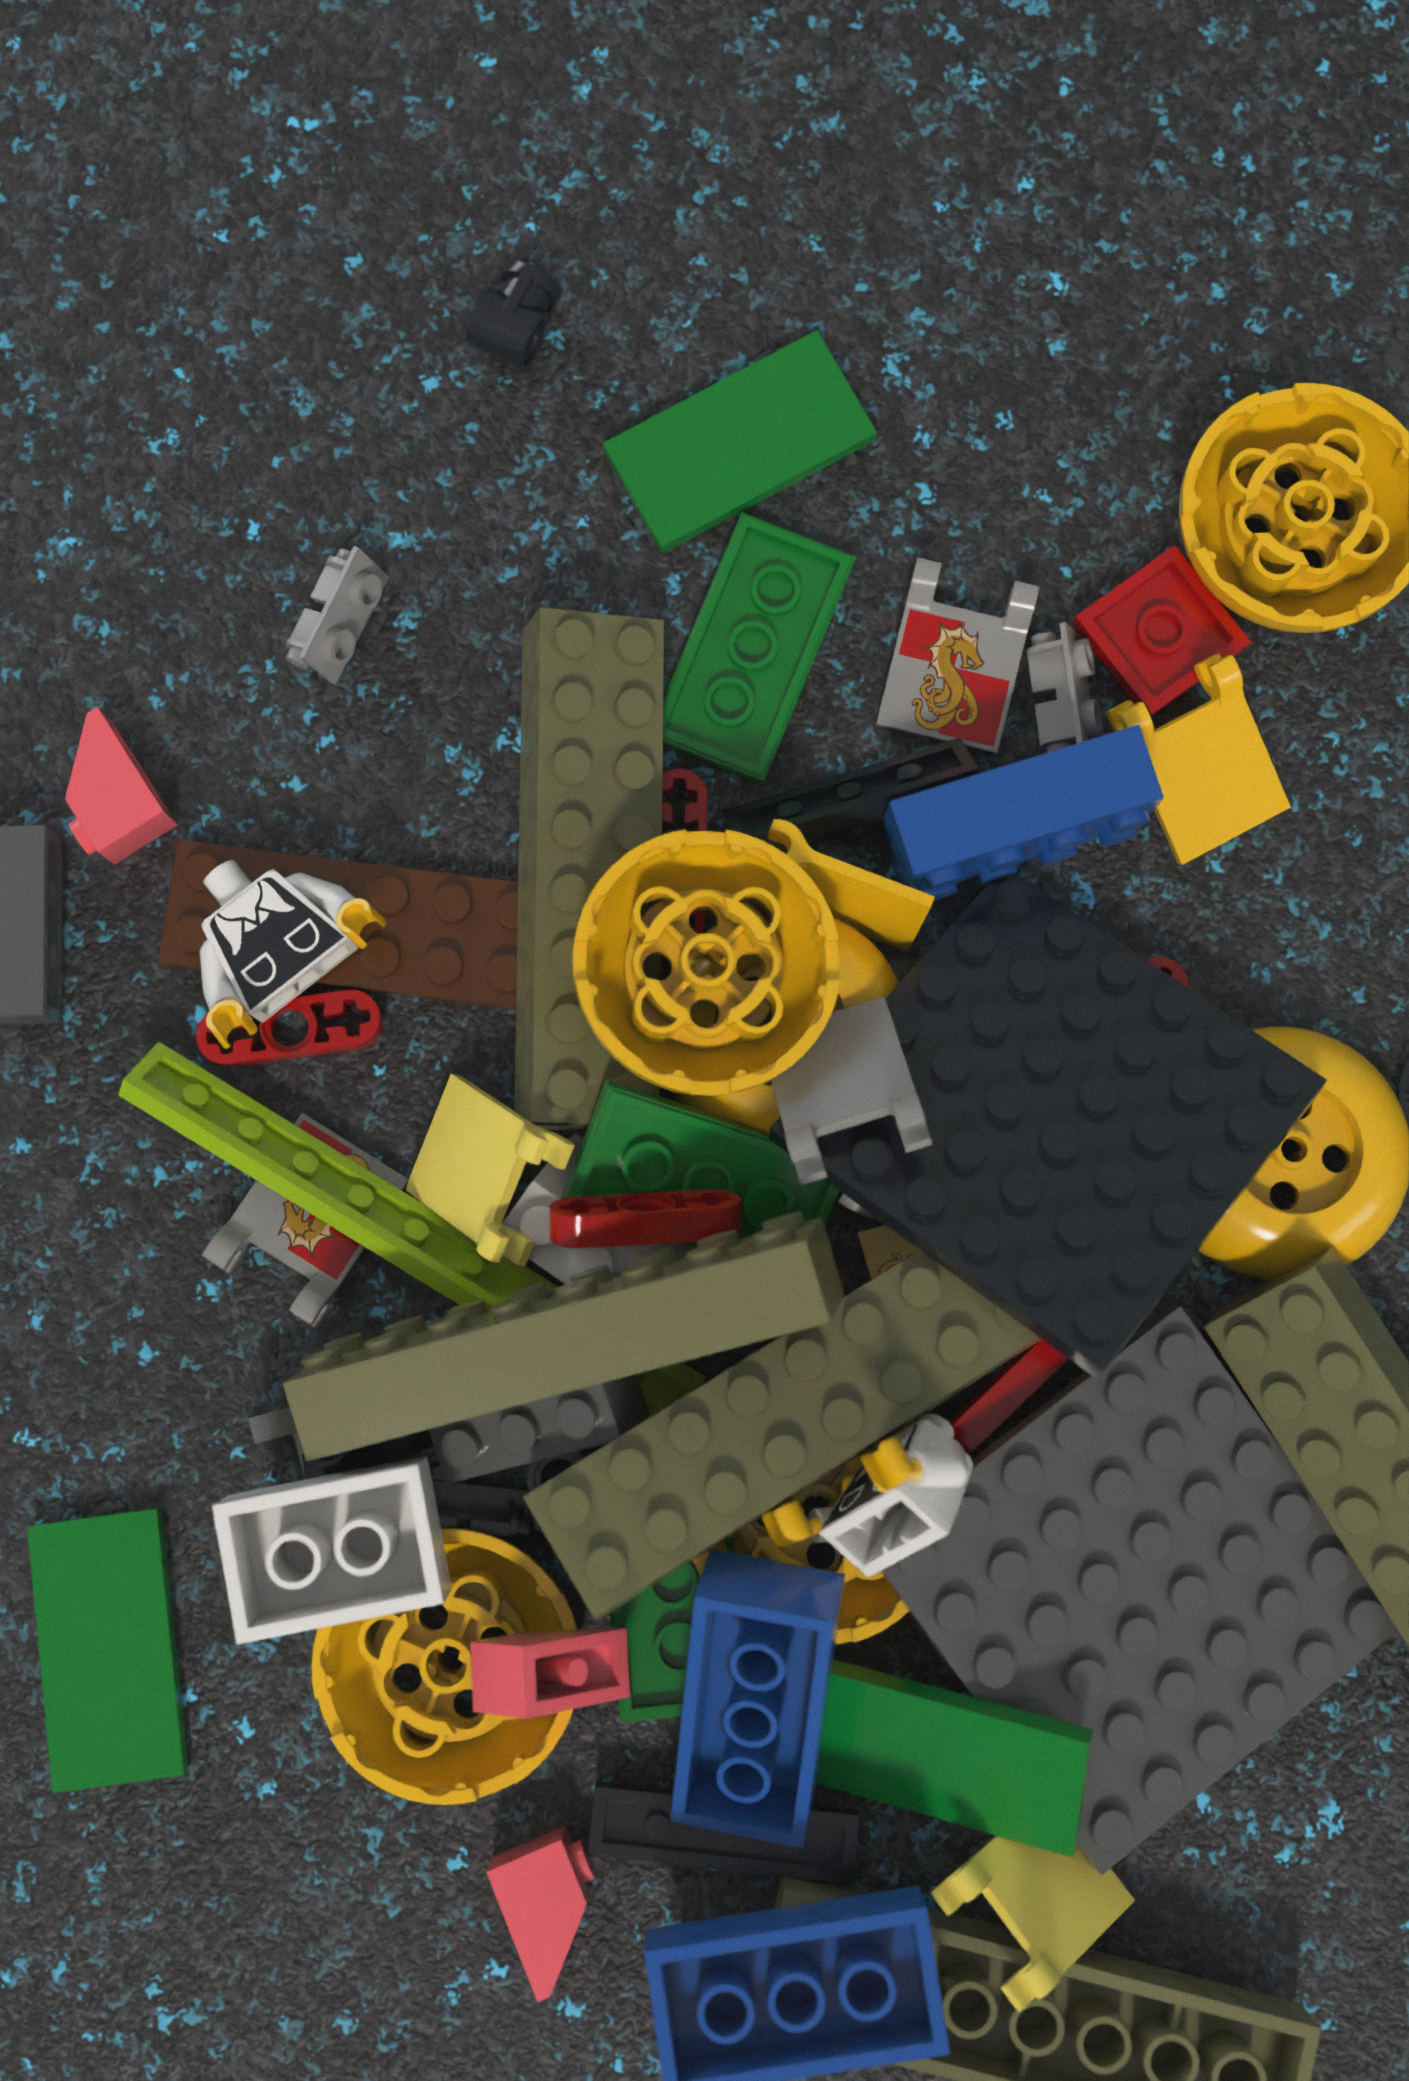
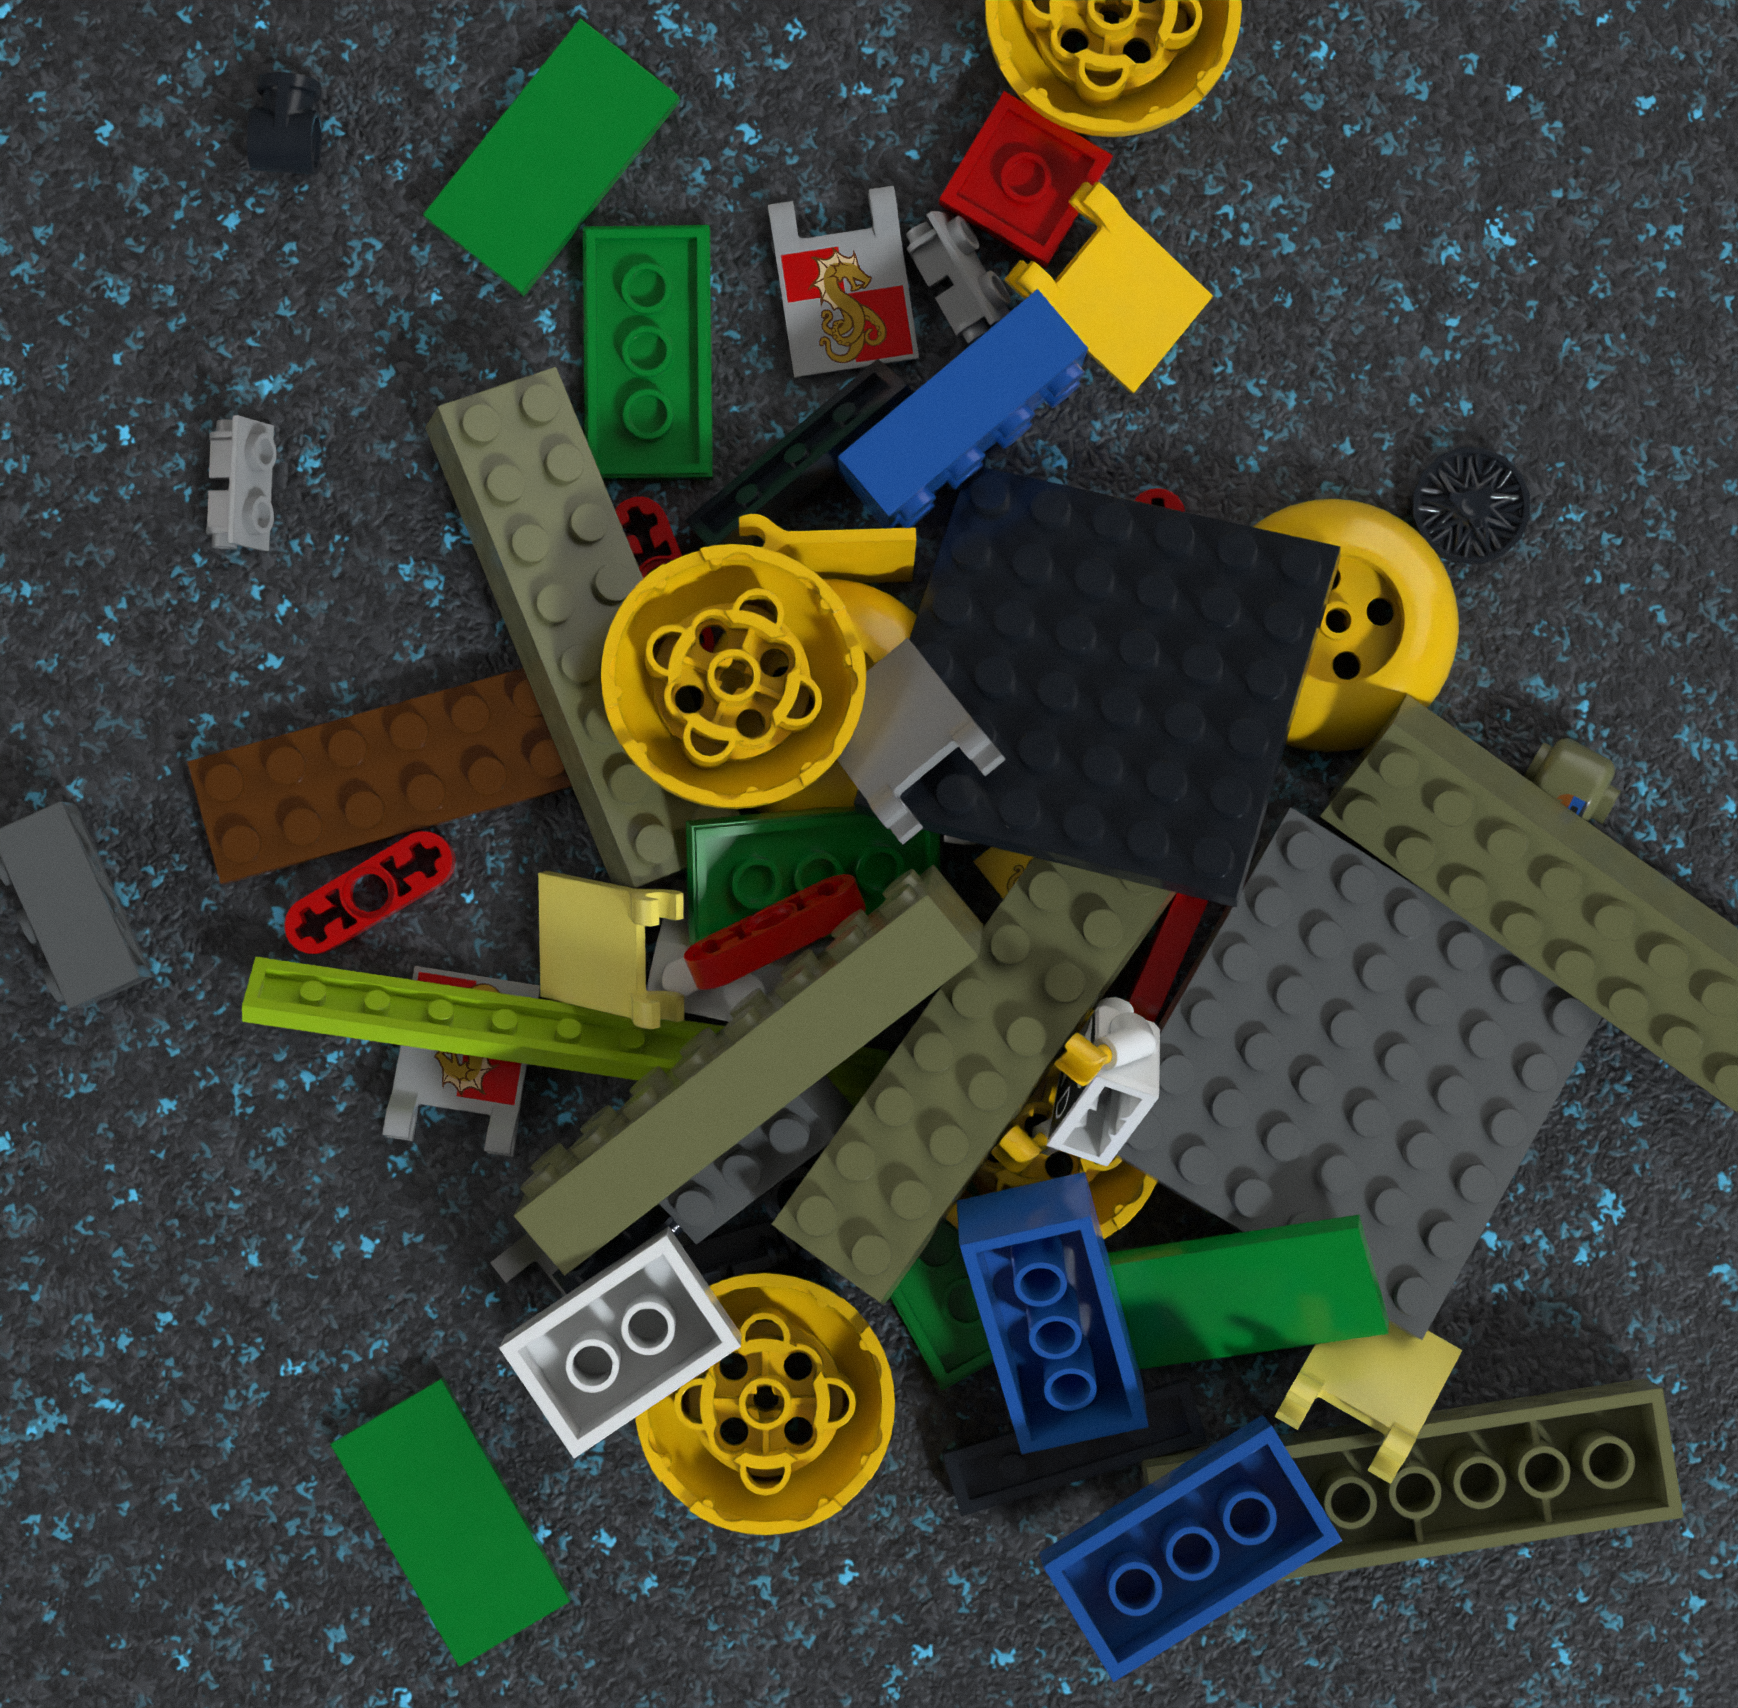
camera: 25 degrees left, 5 degrees up
(112, 794) = (108, 744): coral slope -> none
(272, 942) = (323, 821): torso -> none
(543, 1898) = (938, 1572): coral slope -> none
(549, 1671) = (859, 1367): coral slope -> none

